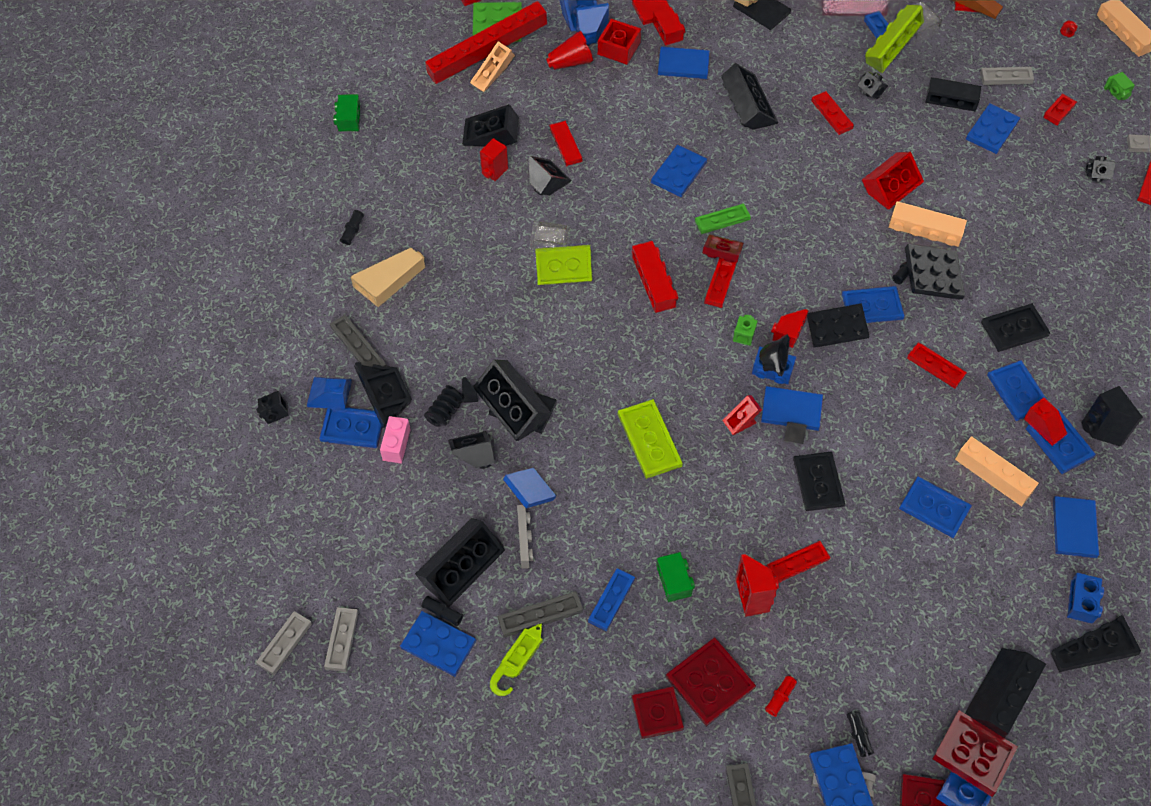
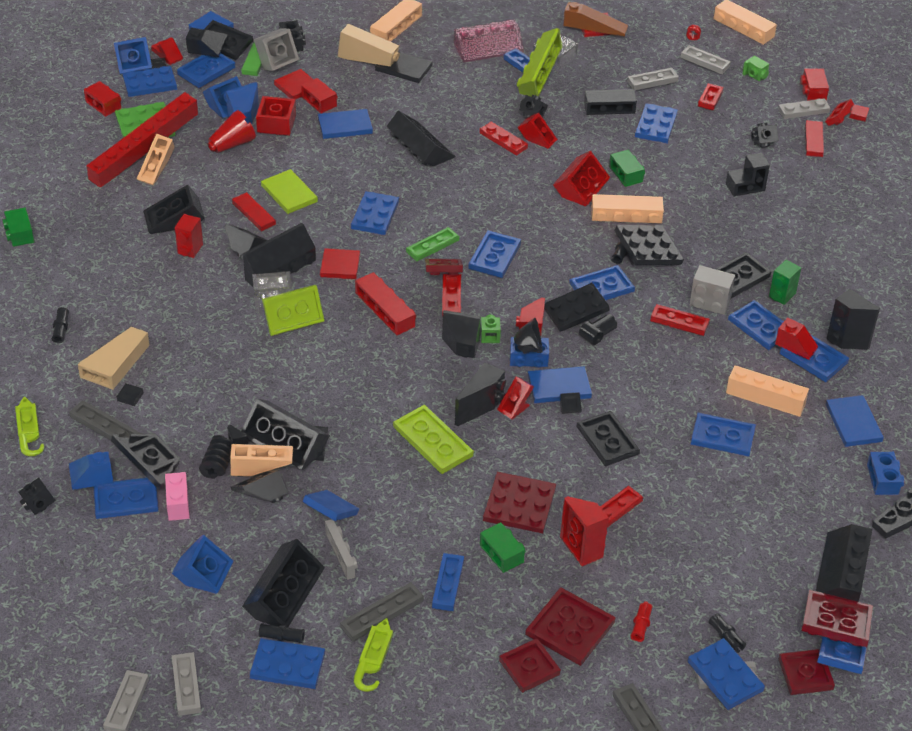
camera: 20 degrees left, 15 degrees down
(290, 329) = (27, 427): none -> lime plate
(390, 317) = (130, 394): none -> black tile
(395, 520) = (203, 566): none -> blue slope
(479, 420) = (256, 459): none -> light nougat slope
(571, 201) = (280, 254): none -> black slope
(606, 128) = (289, 191): none -> lime tile
(627, 220) = (340, 263): none -> red tile
(708, 404) = (480, 394): none -> black slope
(709, 530) = (519, 502): none -> dark red plate
(714, 330) = (461, 333): none -> black slope
(778, 245) = (494, 254): none -> blue plate
(847, 357) = (595, 331): none -> black piece
(868, 113) = (537, 131): none -> red slope
(943, 176) = (627, 168): none -> green brick
(979, 341) = (712, 290): none -> light grey brick
(1058, 350) = (785, 282): none -> green brick
(1065, 217) = (751, 178): none -> black brick
(1070, 63) = (705, 59): none -> light grey plate

